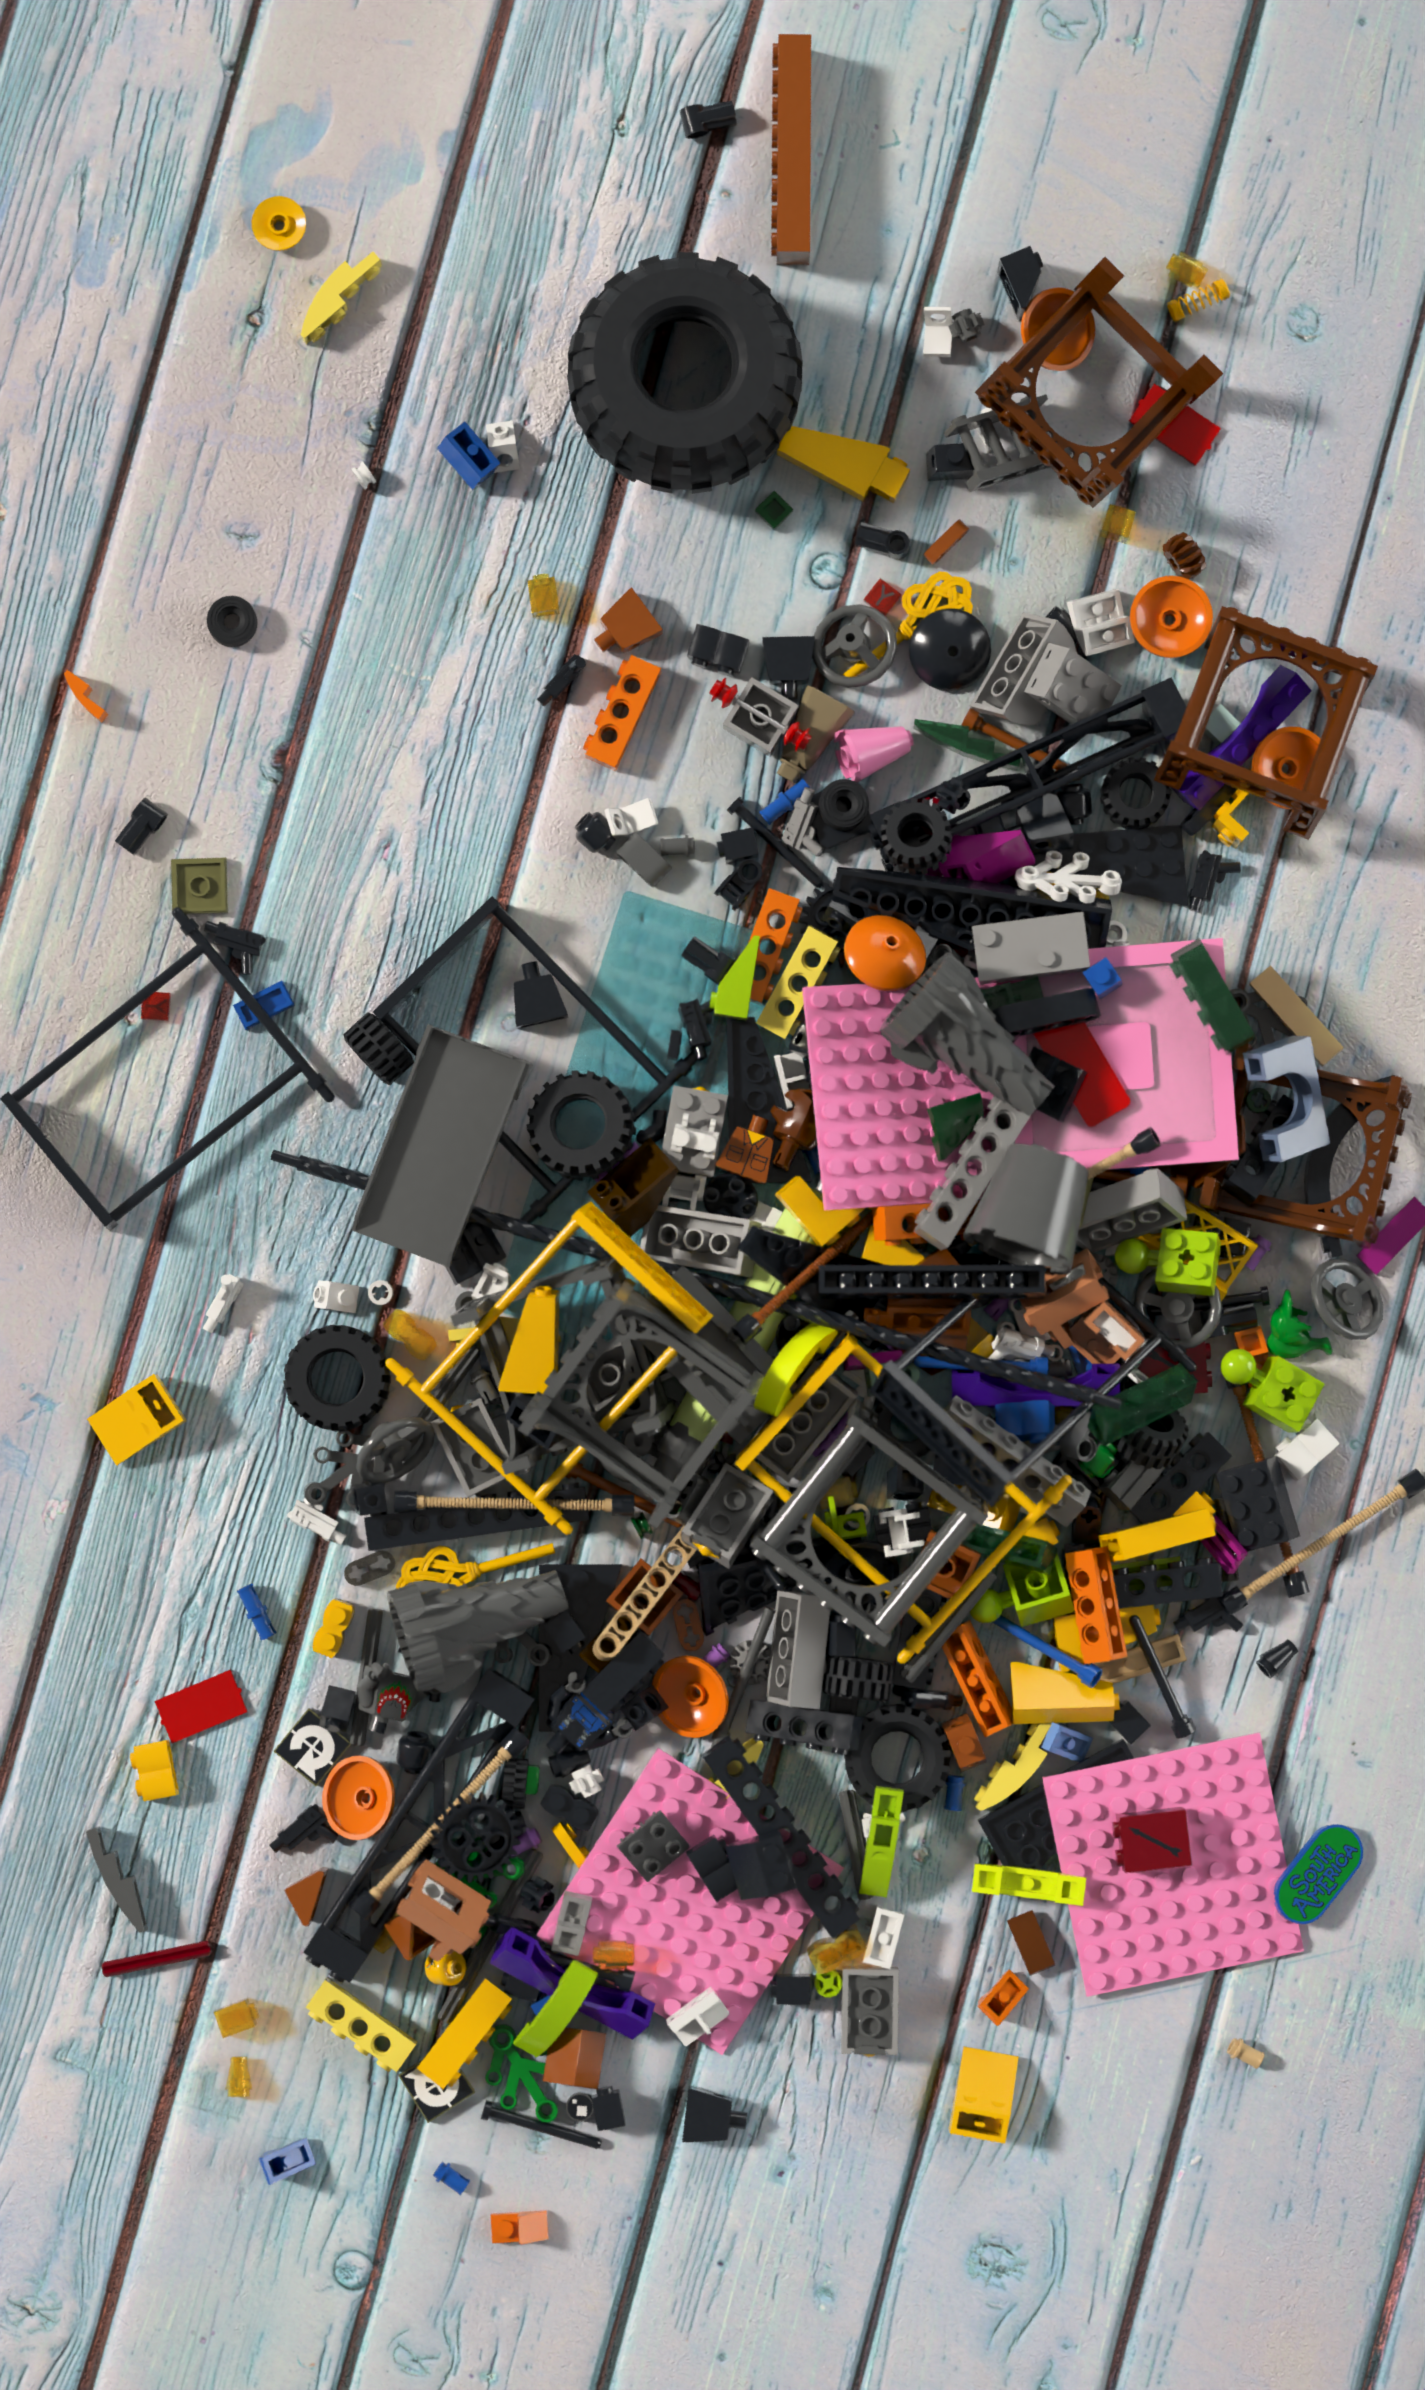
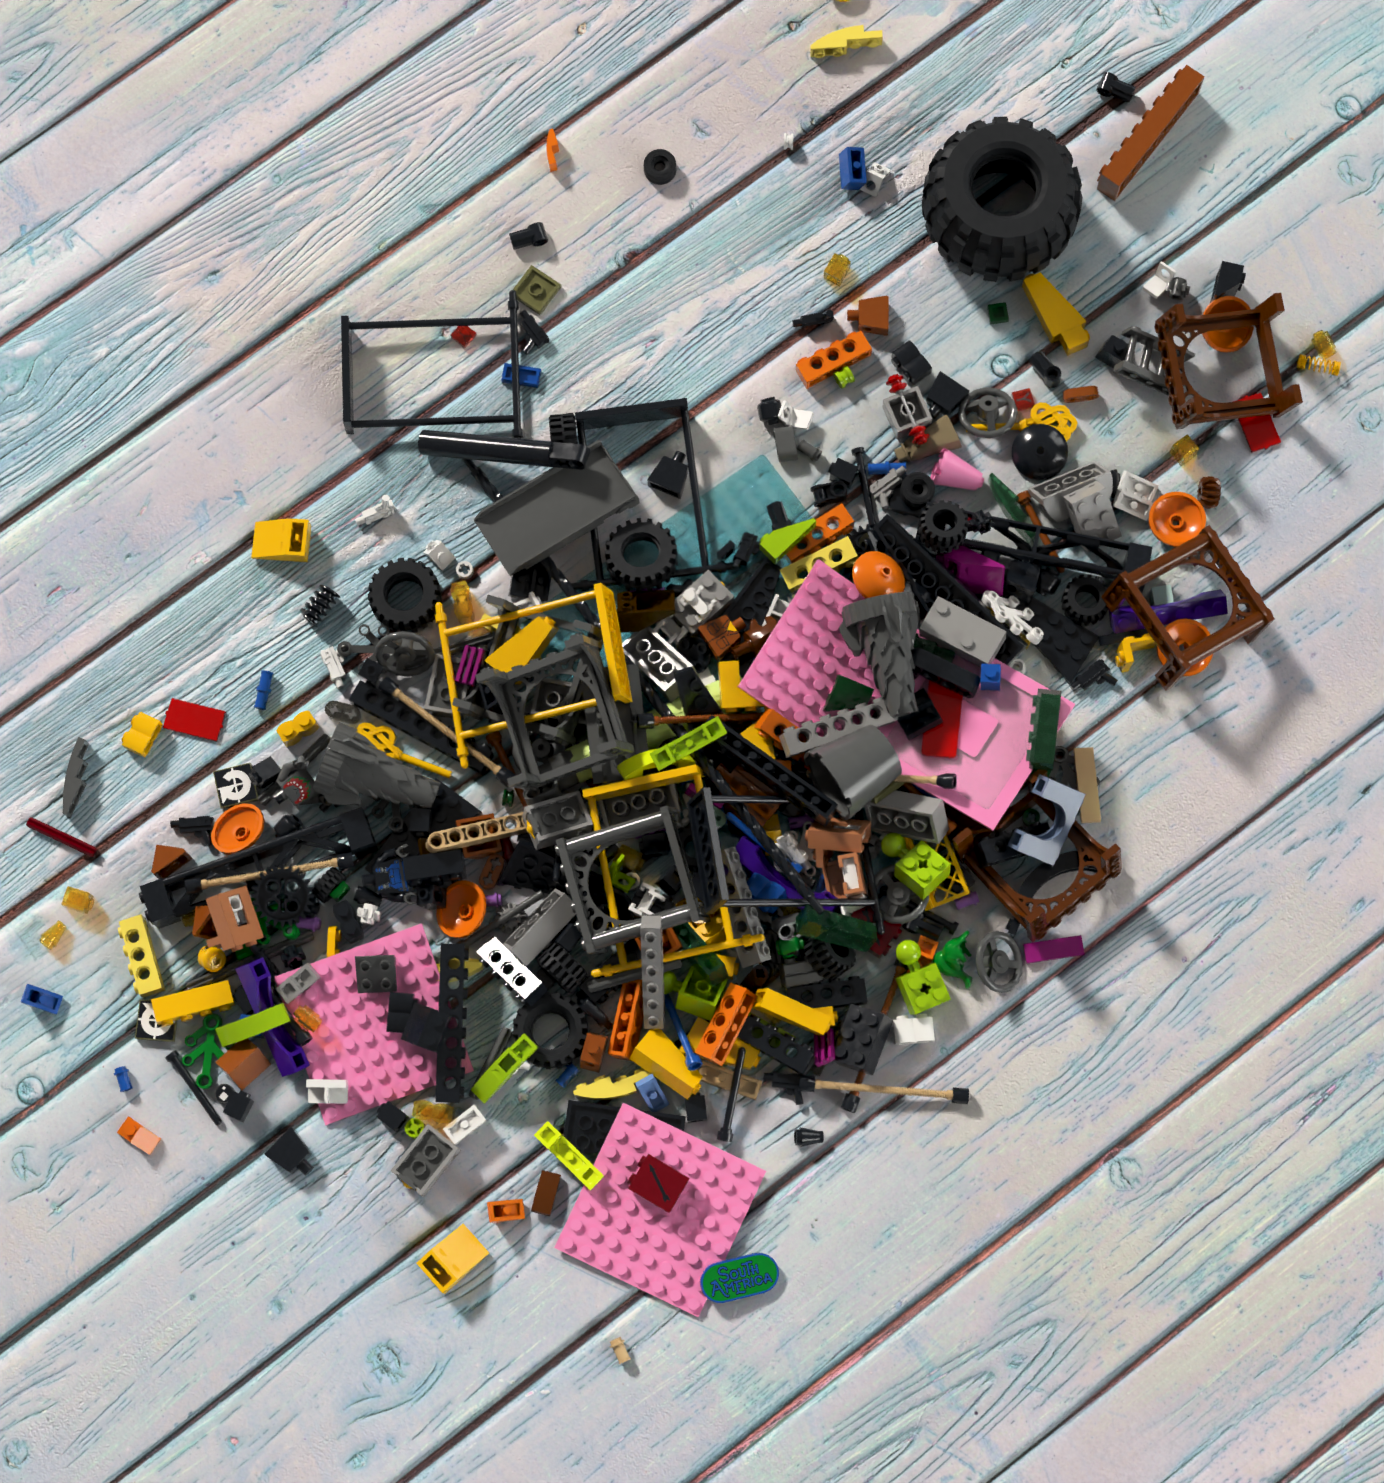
camera: 40 degrees right, 10 degrees down
(243, 1463) = (319, 604): none -> black piece
(321, 1120) = (503, 449): none -> black piece
(472, 1410) = (473, 650): none -> magenta tile
(651, 726) = (843, 377): none -> lime wheel
(818, 1320) = (688, 743): none -> lime slope
(972, 1610) = (652, 972): none -> light grey brick

